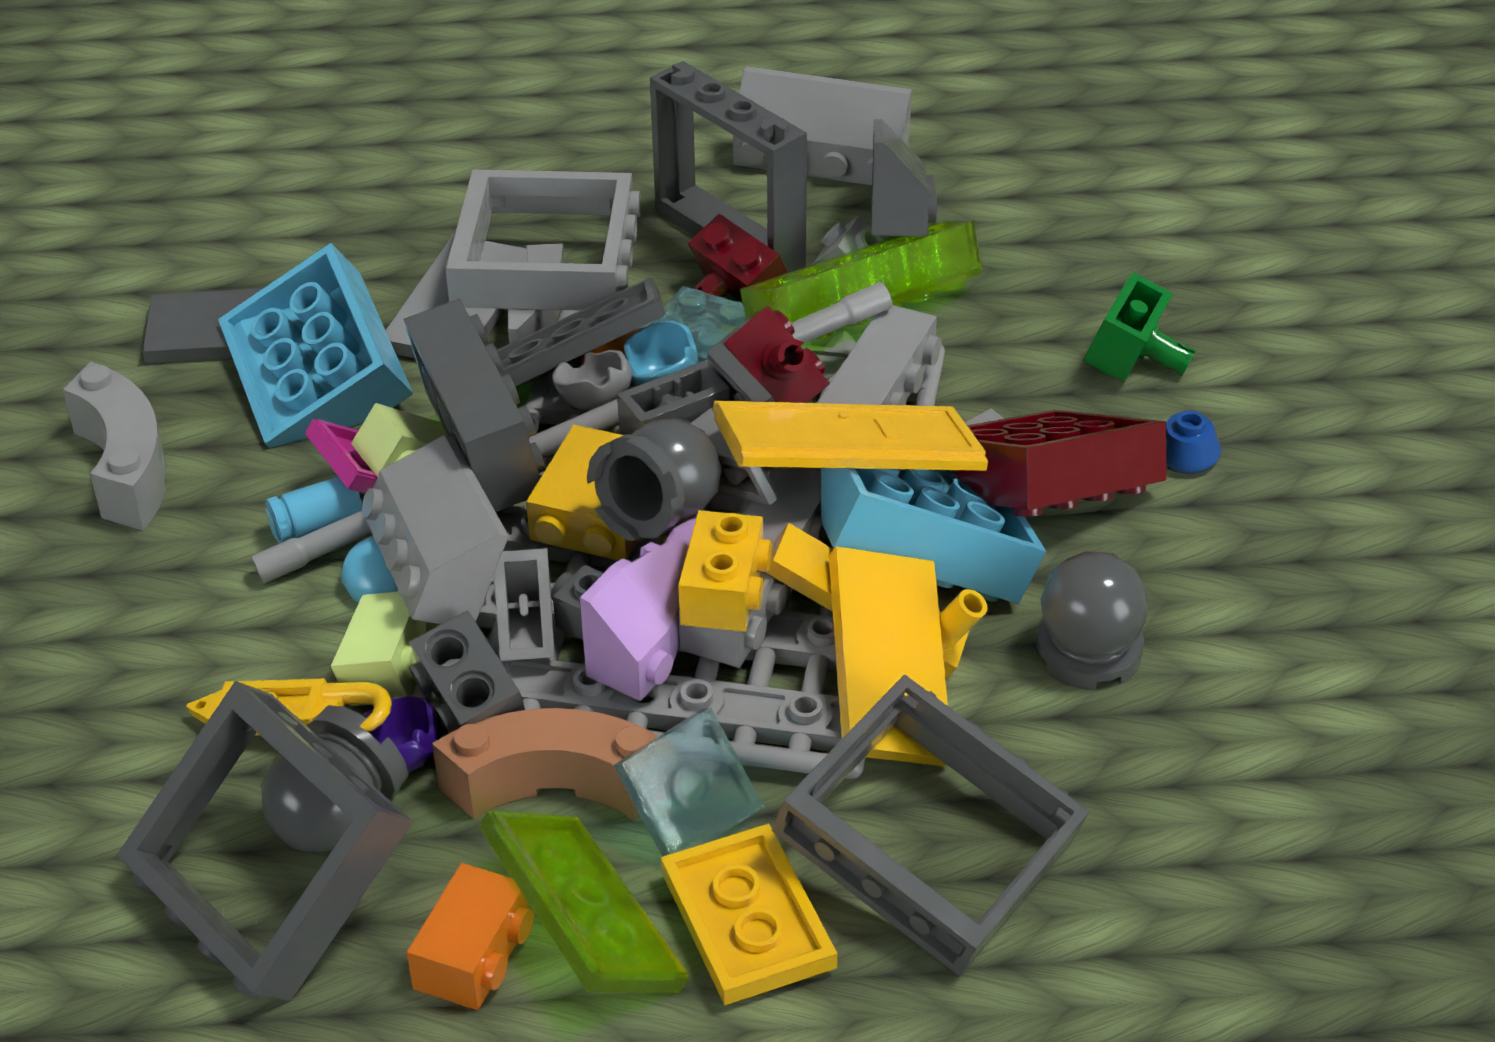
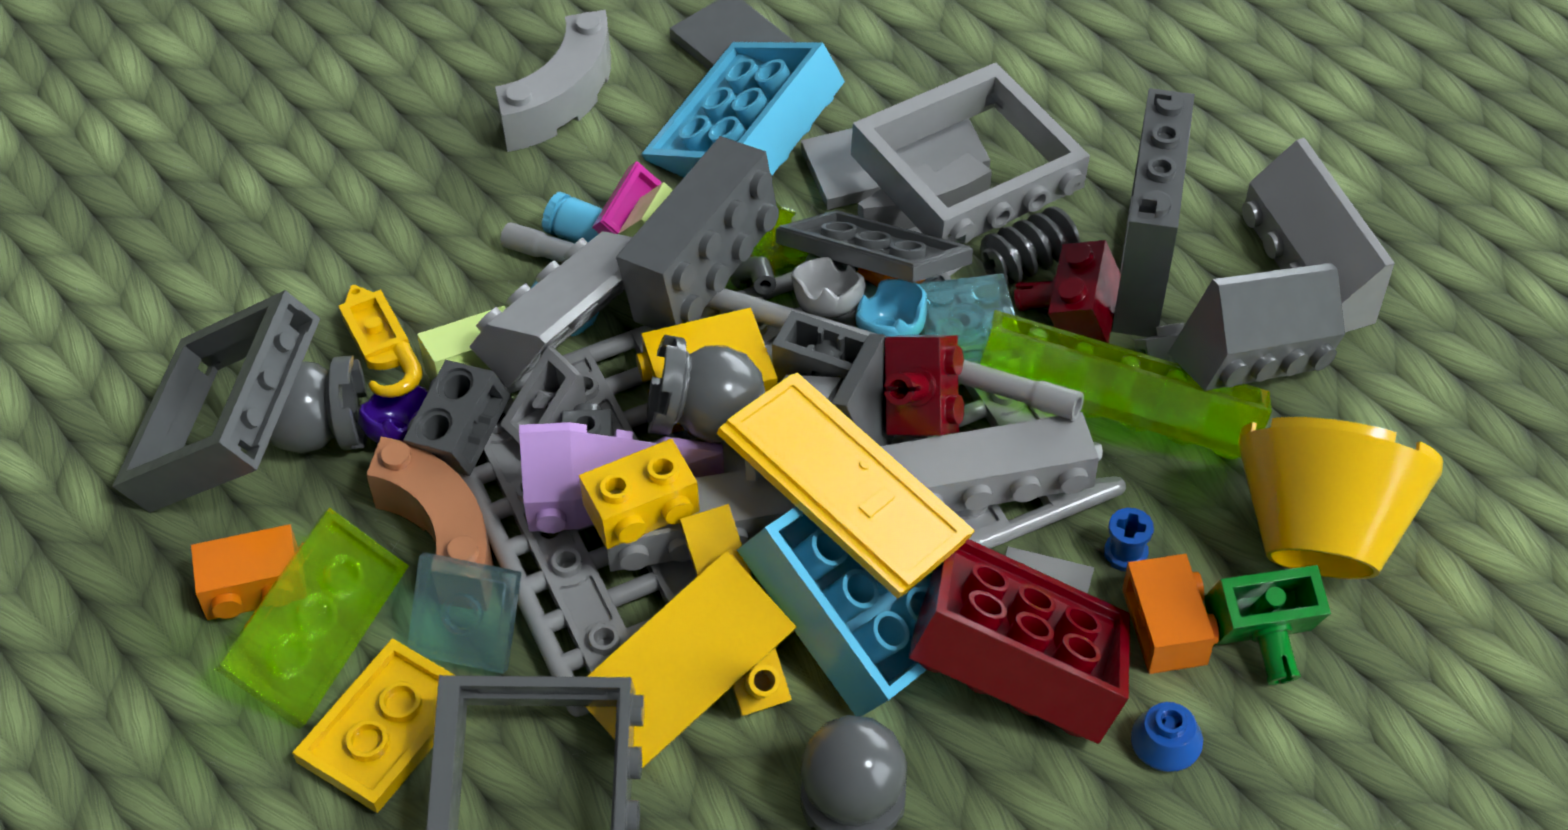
camera: 55 degrees right, 10 degrees up
(661, 255) = (1028, 244): none -> dark grey piece
(994, 361) = (1129, 534): none -> blue bush
(1078, 228) = (1334, 492): none -> yellow cone
(1080, 380) = (1169, 613): none -> orange brick

